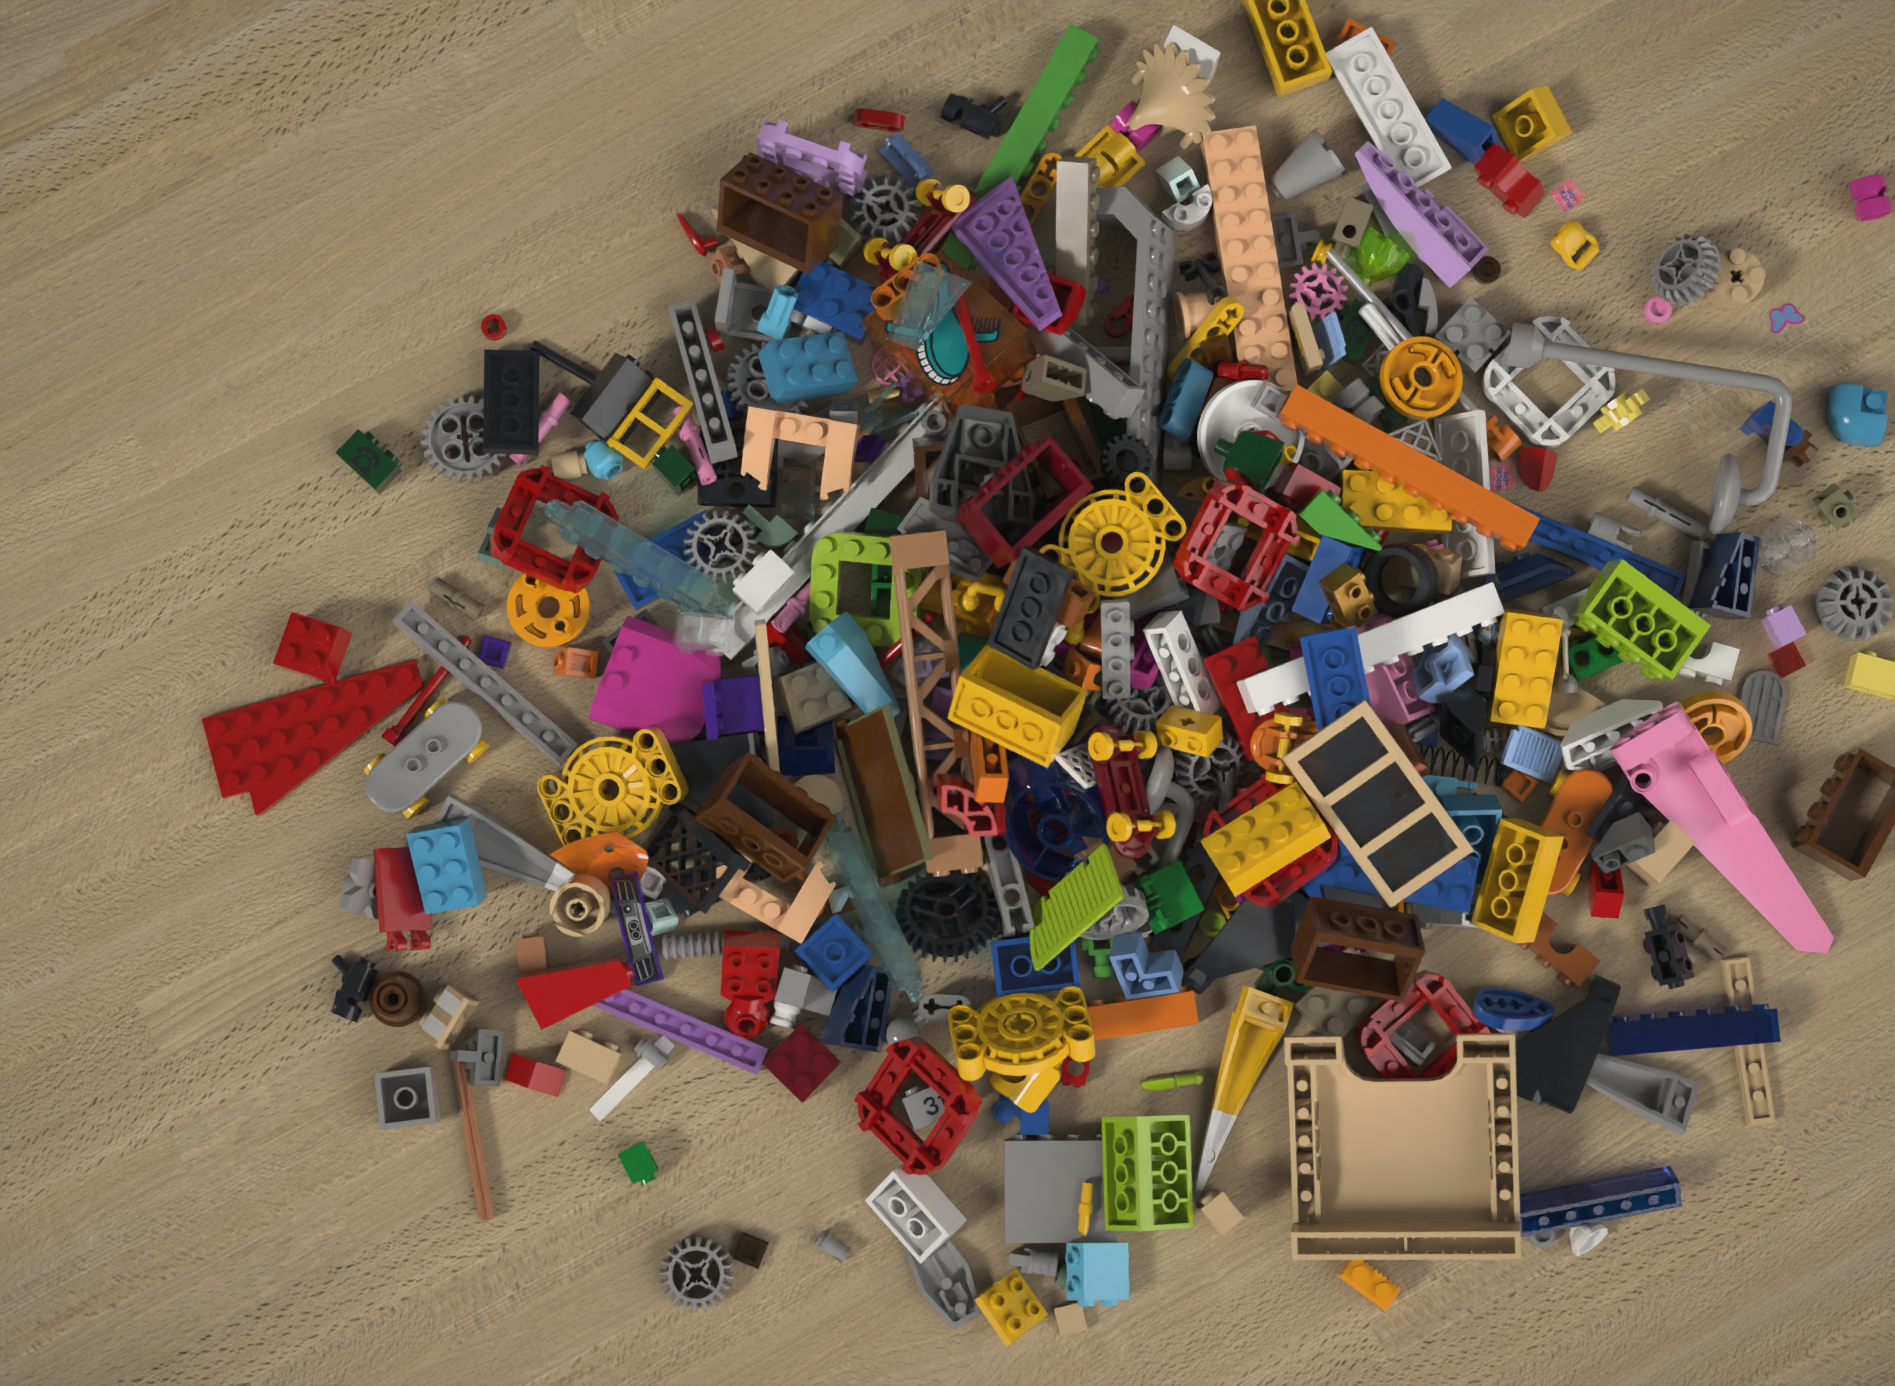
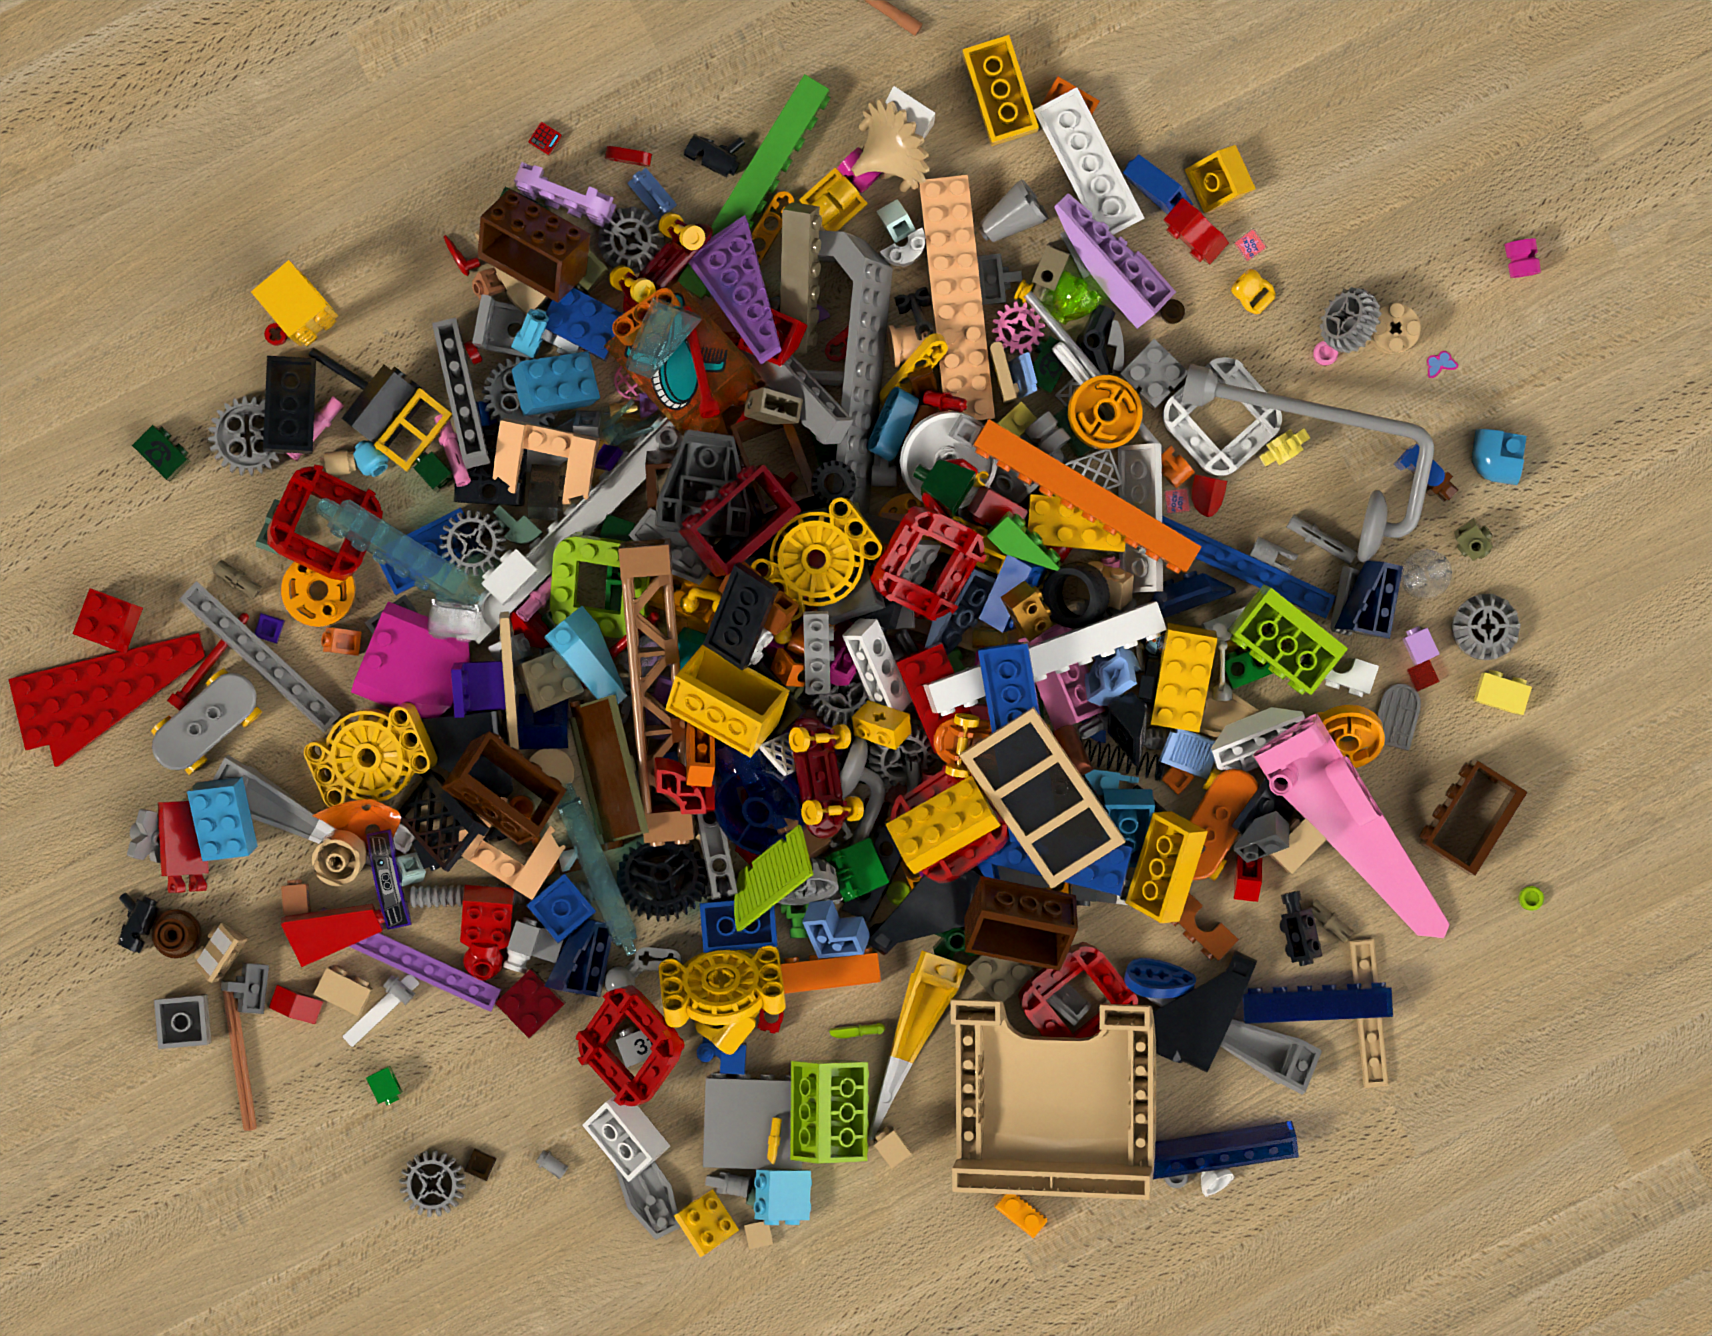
camera: 10 degrees right, 5 degrees up
(515, 287) = (295, 304): none -> yellow hose
(786, 105) = (545, 138): none -> red tile

